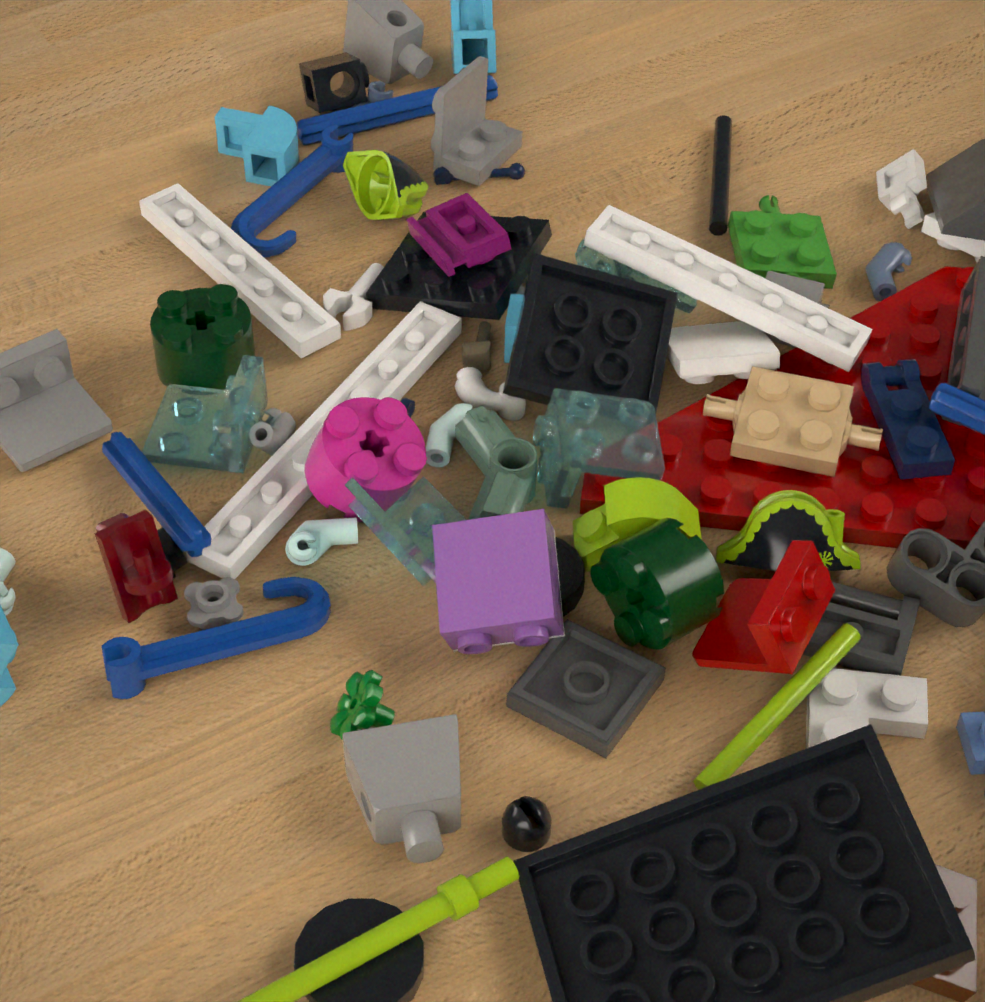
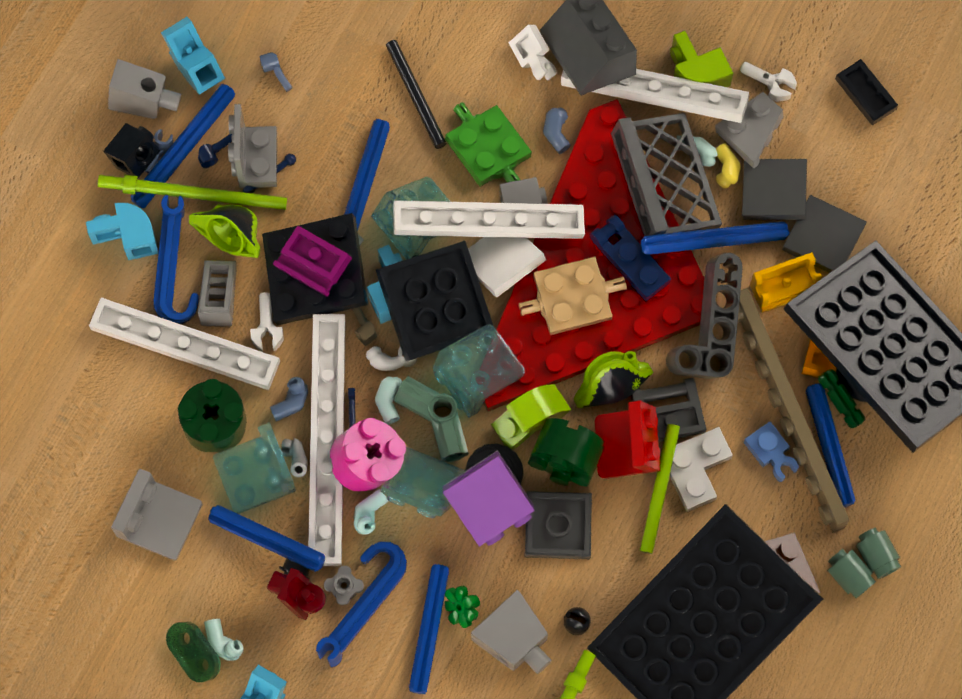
camera: 30 degrees left, 25 degrees up
(285, 720) = (429, 629): none -> blue axle
(307, 105) = (131, 185): none -> lime bar
(315, 249) = (217, 312): none -> light grey slope
(321, 382) = (294, 399): none -> sand blue arm
(419, 127) = (207, 152): none -> dark blue hand
(560, 84) = (270, 62): none -> sand blue hand
(625, 198) = (367, 169): none -> blue axle

